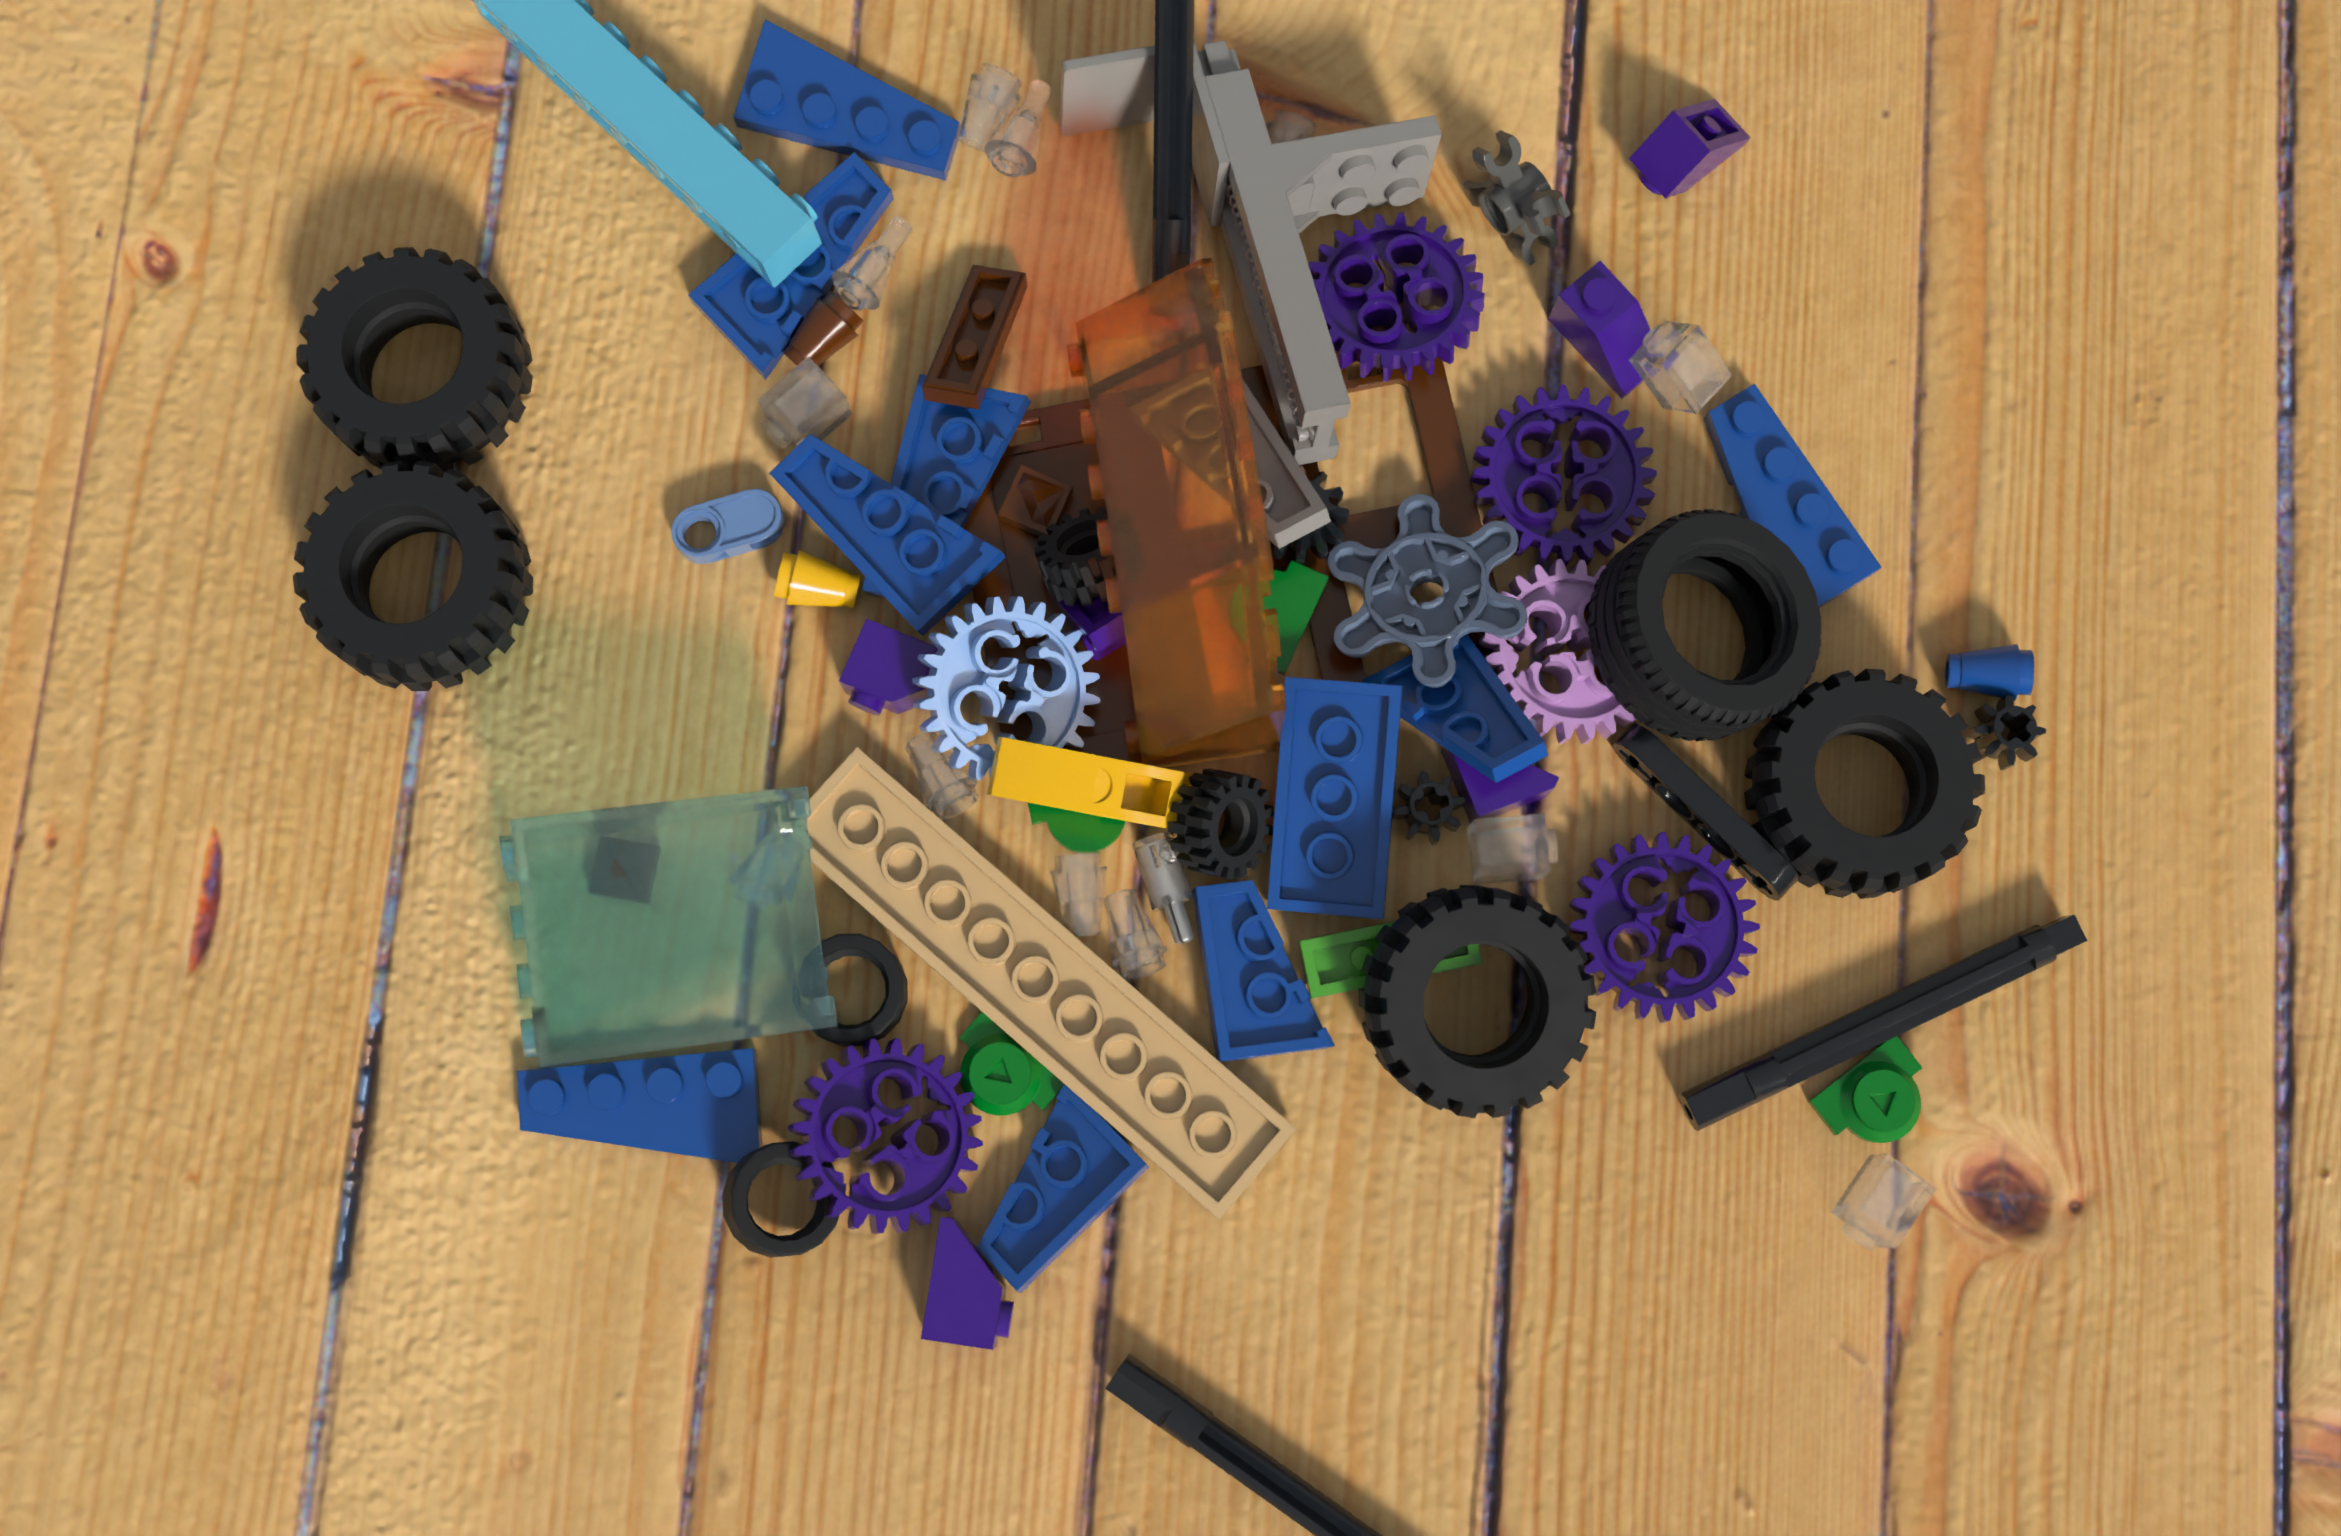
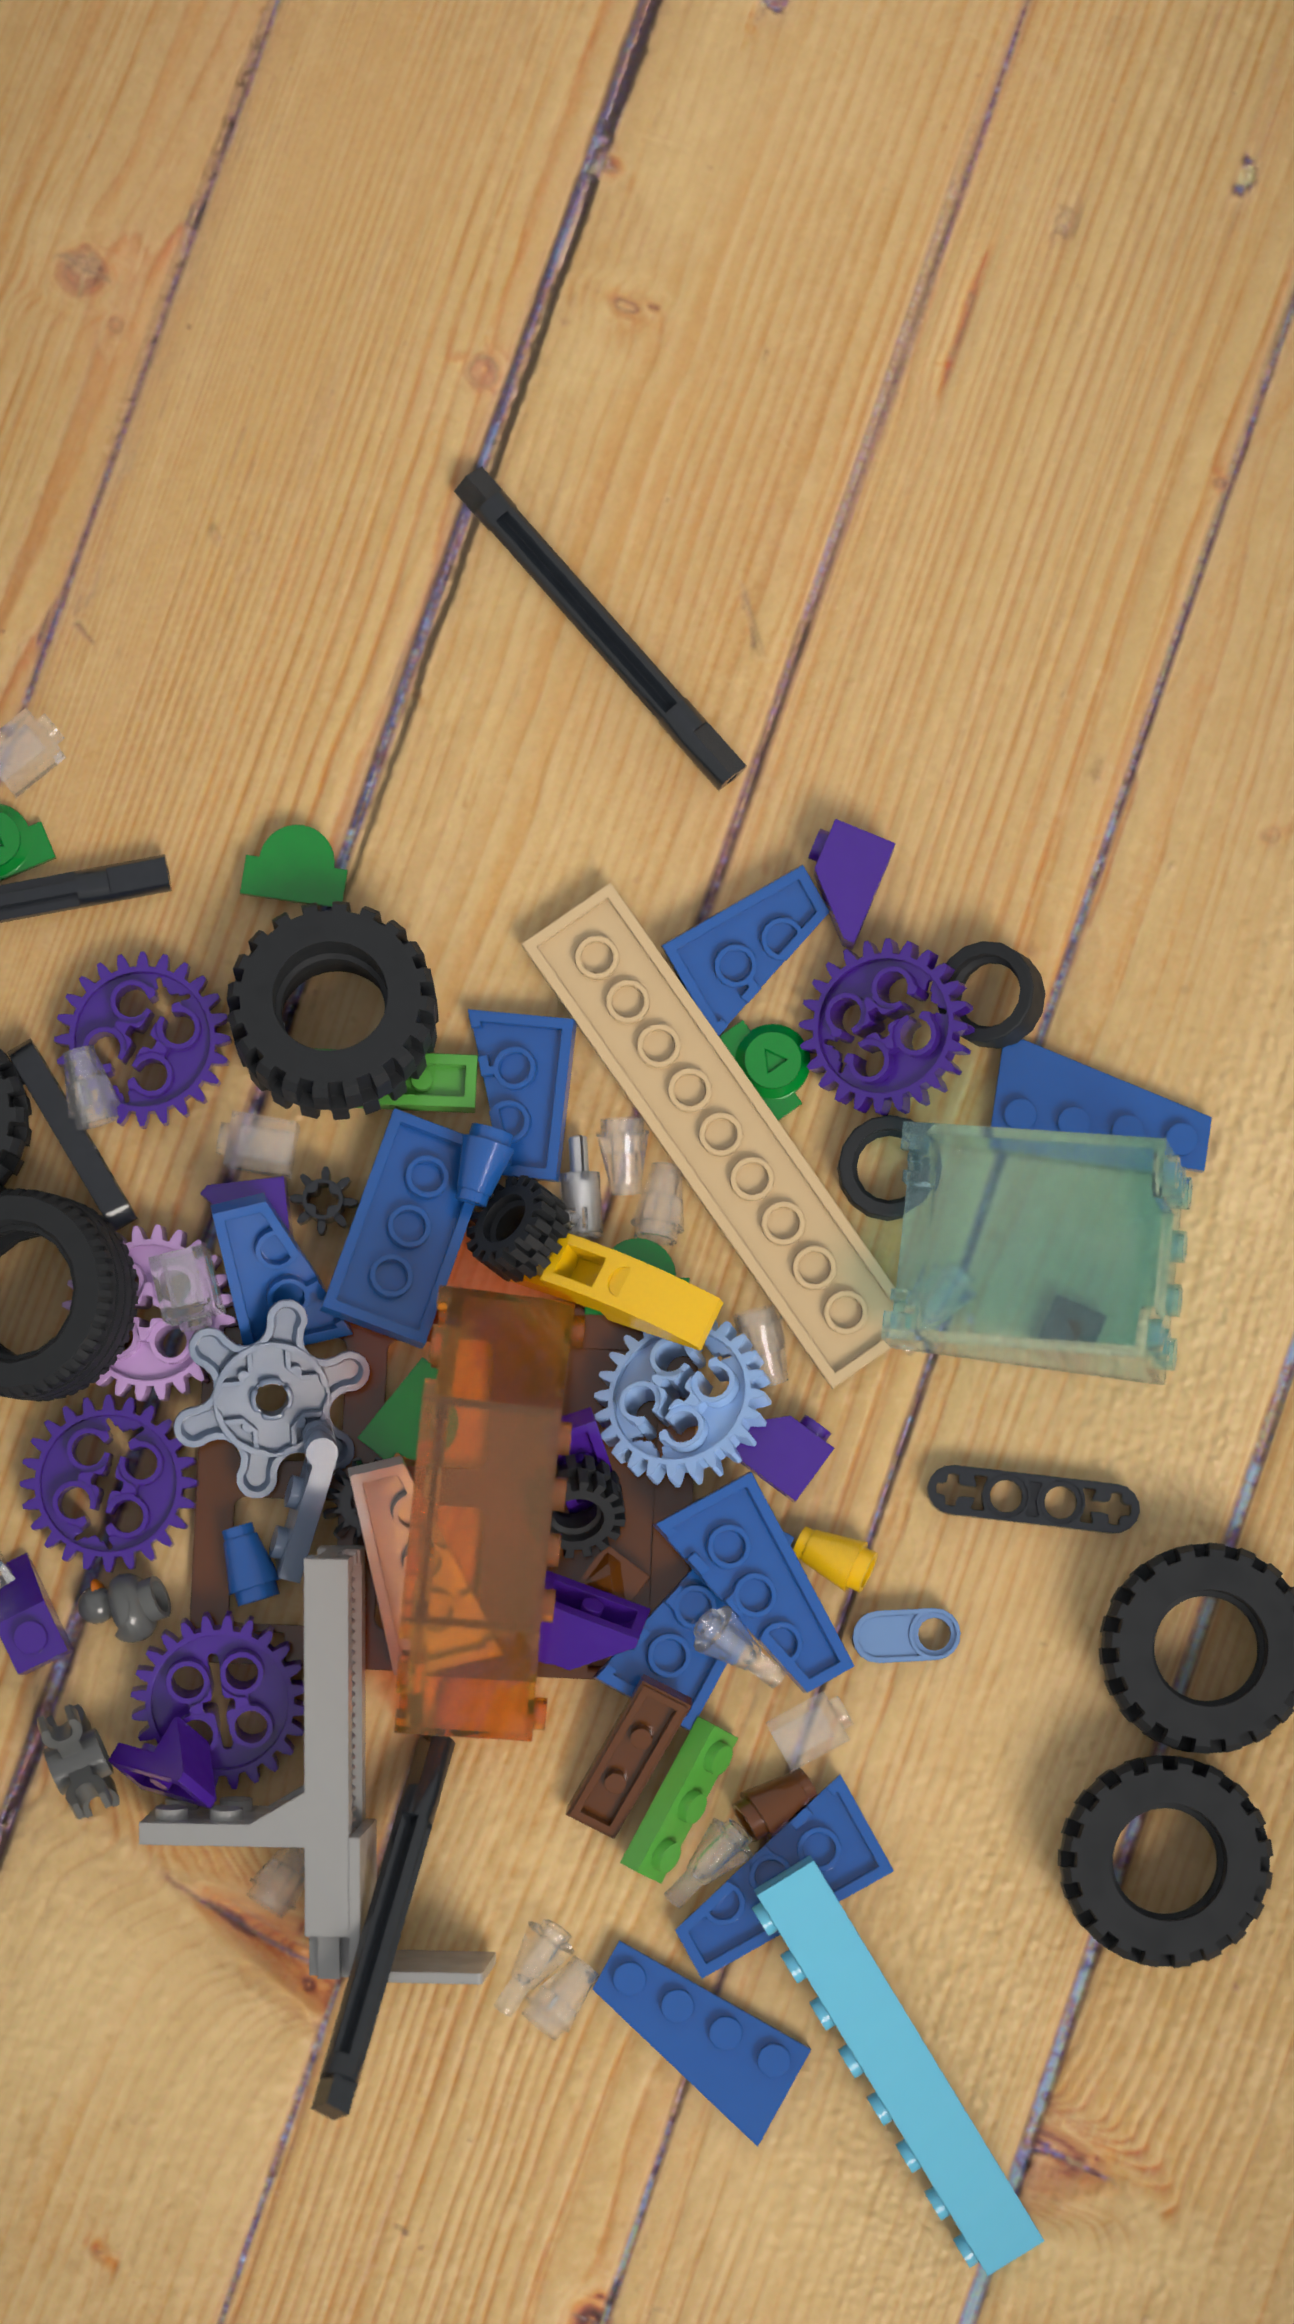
camera: 160 degrees left, 5 degrees up
(628, 683) = (1033, 1494): none -> black beam
(905, 464) = (726, 1639): none -> clear cone
(915, 311) = (680, 1800): none -> bright green plate
(1042, 446) = (588, 1624): none -> dark purple slope
(1275, 882) = (482, 1163): none -> blue cone
(1364, 499) = (305, 1499): none -> sand blue plate
(1401, 428) = (248, 1565): none -> blue cone
(1420, 207) = (175, 1768): none -> dark purple slope
(1509, 366) = (132, 1603): none -> dark grey animal
(1545, 670) = (187, 1287): none -> clear brick
(1555, 1151) = (295, 868): none -> green piece
(1707, 853) = (88, 1089): none -> clear cone

